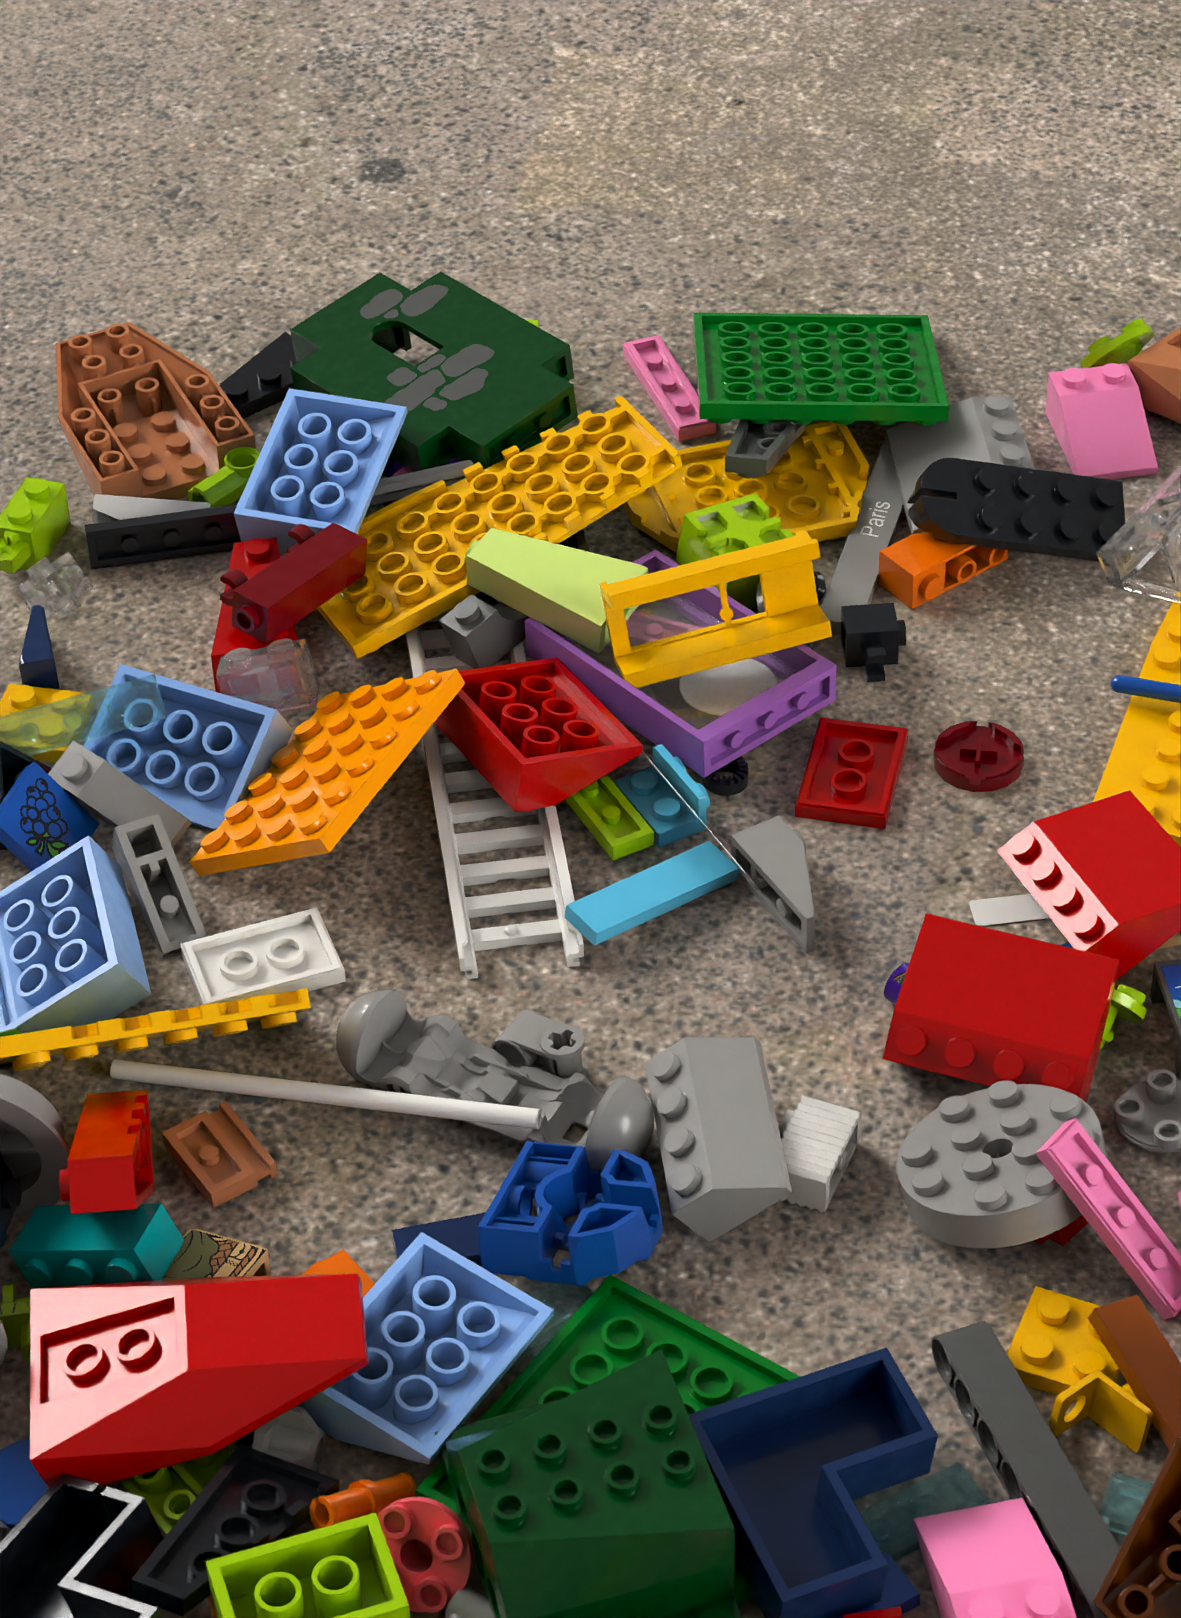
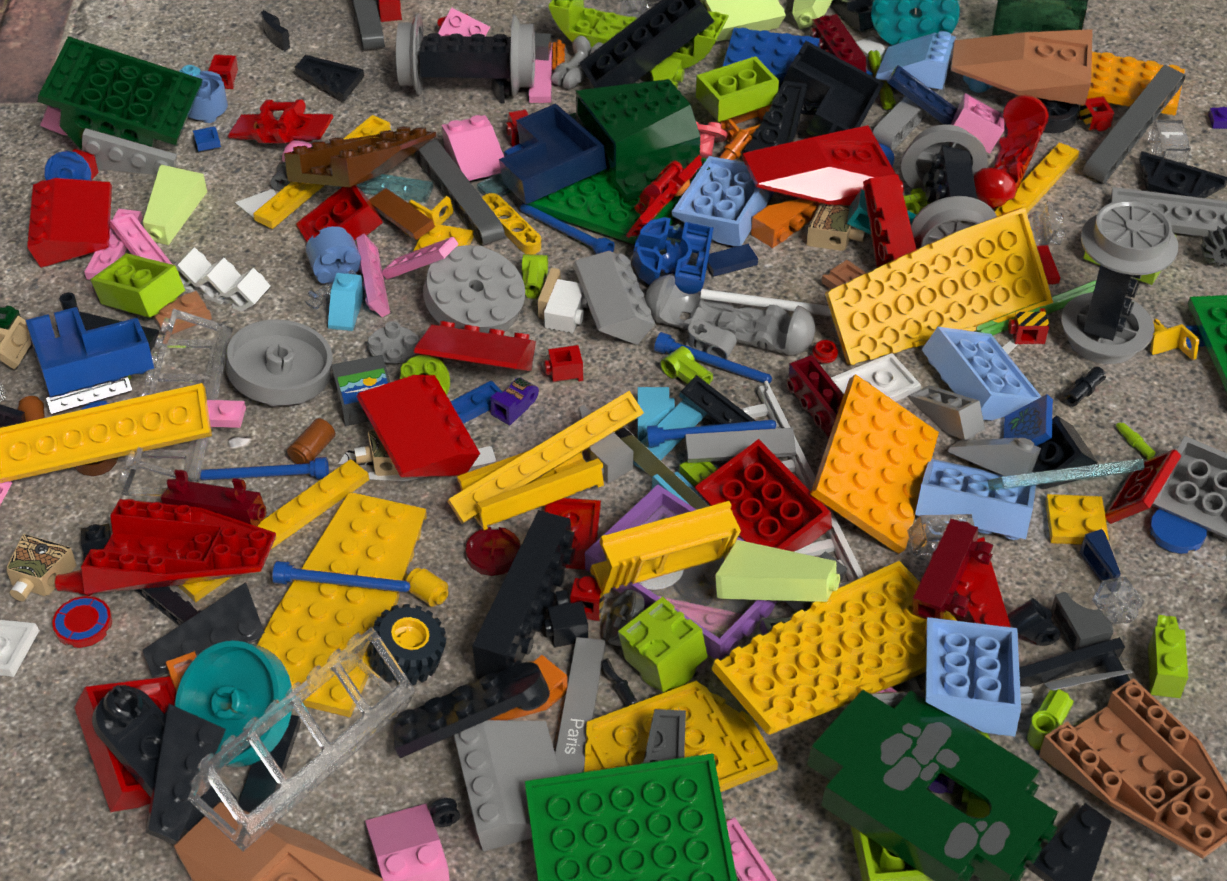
camera: 170 degrees right, 5 degrees up
(119, 575) = (1079, 624): none -> dark grey arch
(190, 571) = (1035, 623): none -> black piece
(323, 1020) = (825, 351): none -> red plate
(374, 905) = (815, 391): none -> dark red brick
(544, 830) = (726, 445): none -> light grey tile
(552, 878) = (712, 403): none -> black tile
(566, 1322) = (669, 183): none -> red piece
(604, 1011) = (682, 364): none -> lime piece
(622, 1059) = (665, 343): none -> blue piece
(680, 929) = (655, 405): none -> medium azure slope
(682, 858) = (657, 435): none -> blue piece
(717, 1293) = (599, 245): none -> blue piece
(830, 1026) = (564, 363): none -> red brick
(832, 846) = (557, 484): none -> yellow piece
(845, 1182) = (548, 287): none -> tan tile
(847, 652) = (588, 590): none -> red brick
(864, 825) = (548, 455): none -> yellow plate
(872, 1241) = (533, 272): none -> lime piece
(924, 1382) = (514, 221): none -> yellow beam
(931, 637) = (525, 595): none -> black brick
(1053, 444) = (444, 812): none -> black bush
(1084, 698) = (427, 586): none -> yellow brick
(1112, 607) = (412, 640): none -> black wheel

